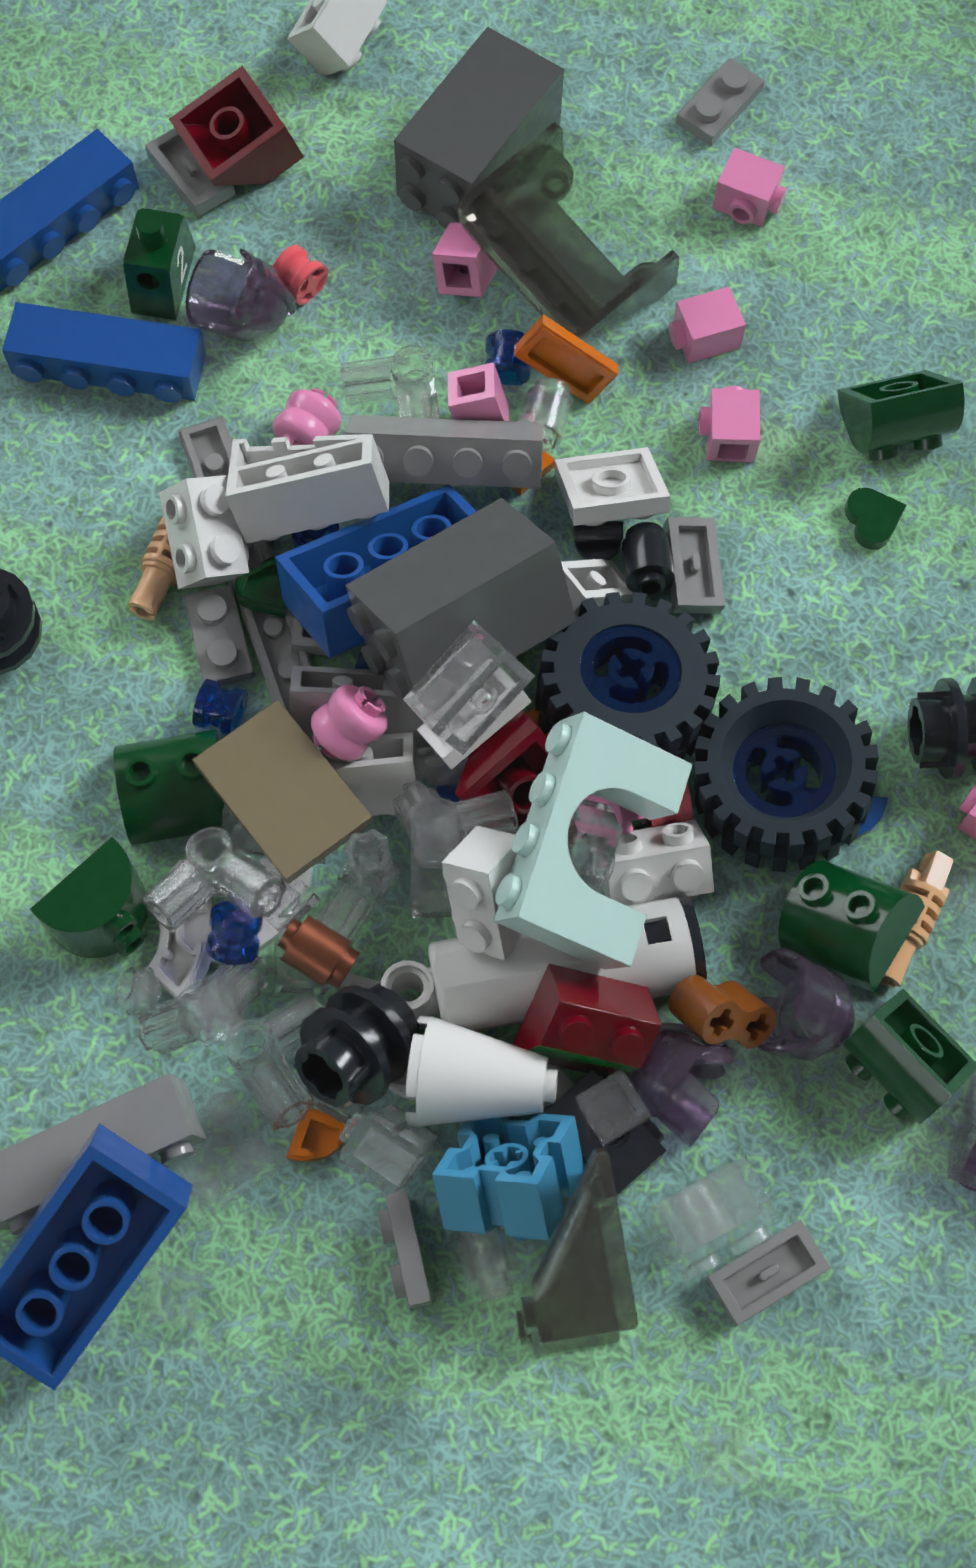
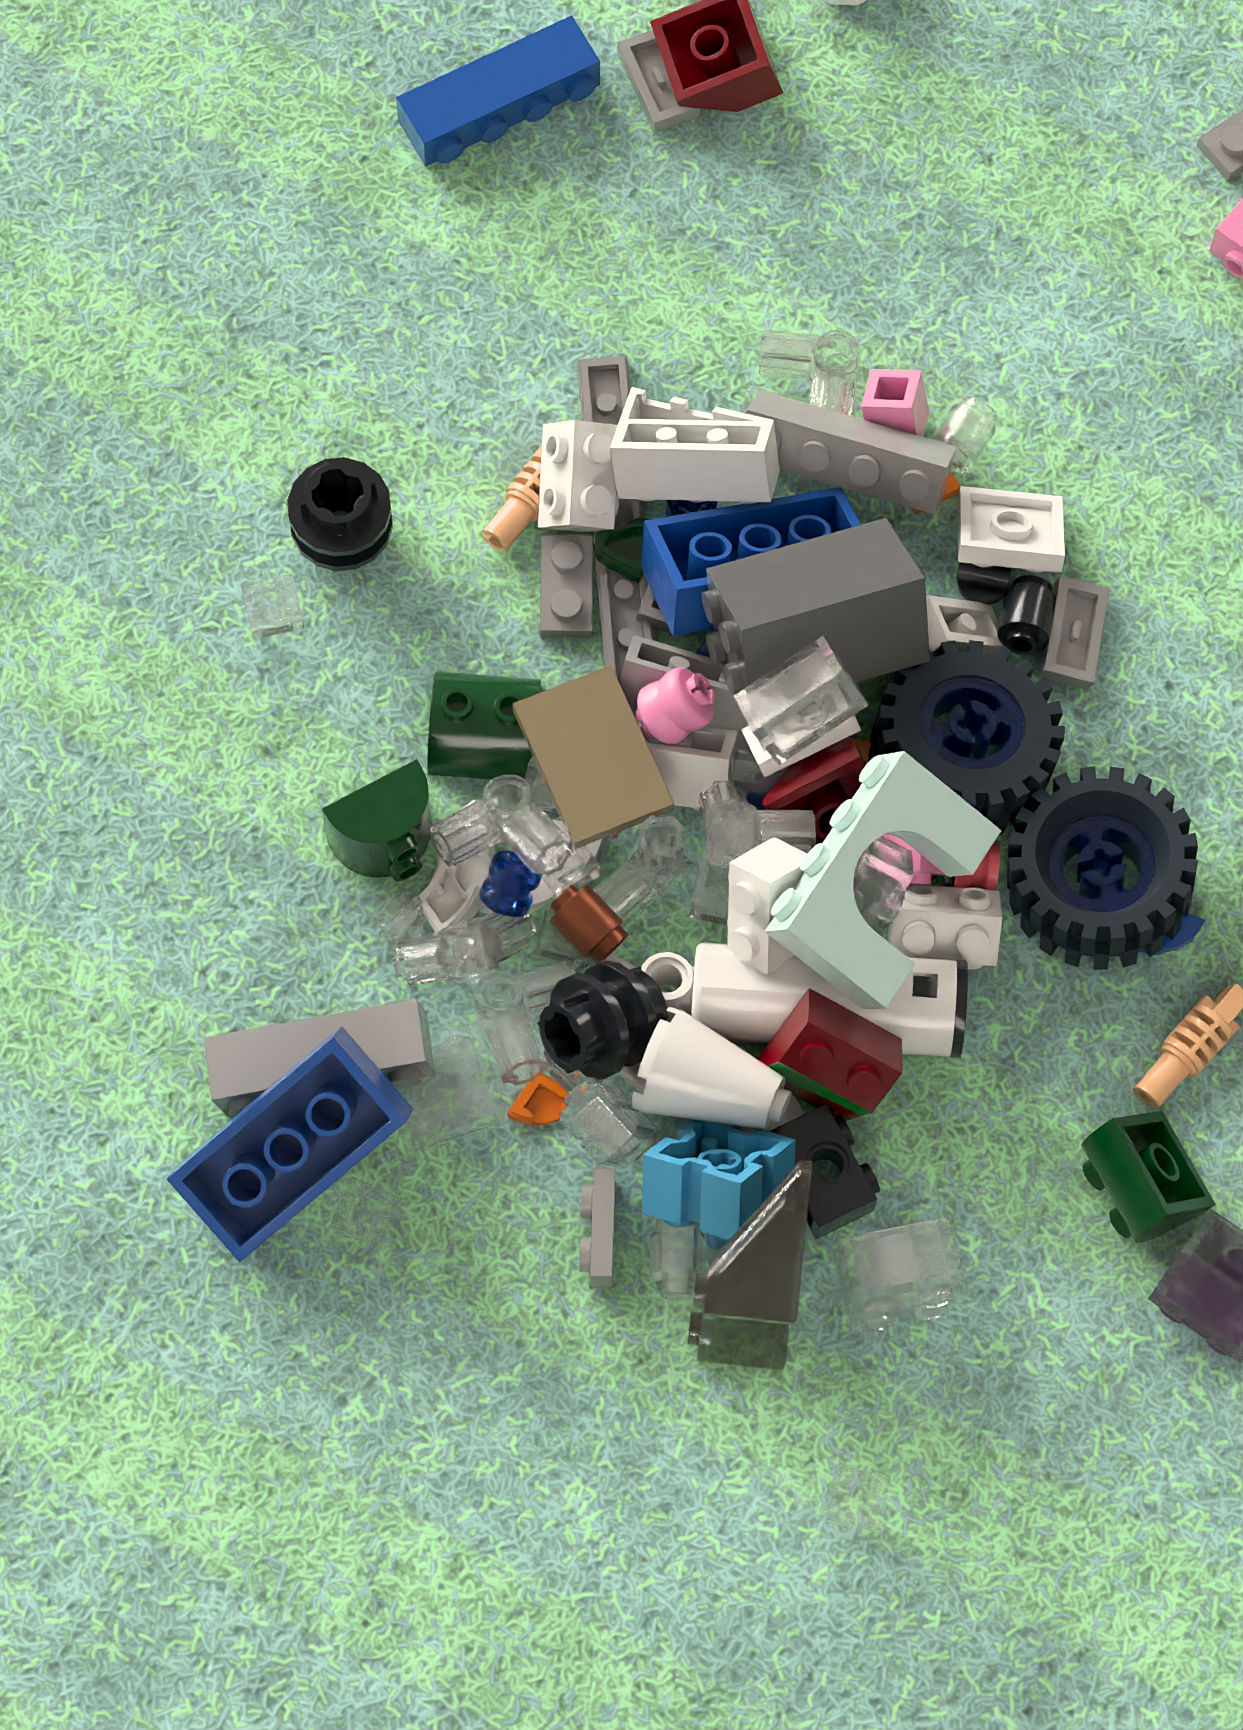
camera: 15 degrees right, 0 degrees up
(104, 352) = (522, 260): blue brick -> none
(162, 248) = (607, 167): dark green torso -> none
(219, 707) = (550, 658): clear blue wheel -> none
(237, 296) = (673, 233): helmet -> none
(300, 274) = (744, 222): coral wheel -> none
(307, 416) = (713, 382): bright pink piece -> none
(461, 264) = (924, 249): bright pink brick -> none
(475, 123) = (974, 114): dark grey brick -> none
(500, 349) = (942, 364): clear blue wheel -> none
(545, 252) = (1013, 264): clear smoke windscreen -> none
(566, 358) = (1000, 383): orange tile -> none
(612, 1107) = (835, 1144): clear tile -> none
(669, 1081) = (901, 1131): clear purple helmet -> none
(707, 325) = (1162, 381): bright pink brick -> none
(722, 1012) = (969, 1081): dark orange axle -> none
(731, 424) = (1156, 493): bright pink brick -> none
(767, 1273) = (945, 1342): light grey plate -> none
(810, 1009) = (1058, 1108): helmet -> none
(847, 922) = (1120, 1029): dark green brick -> none

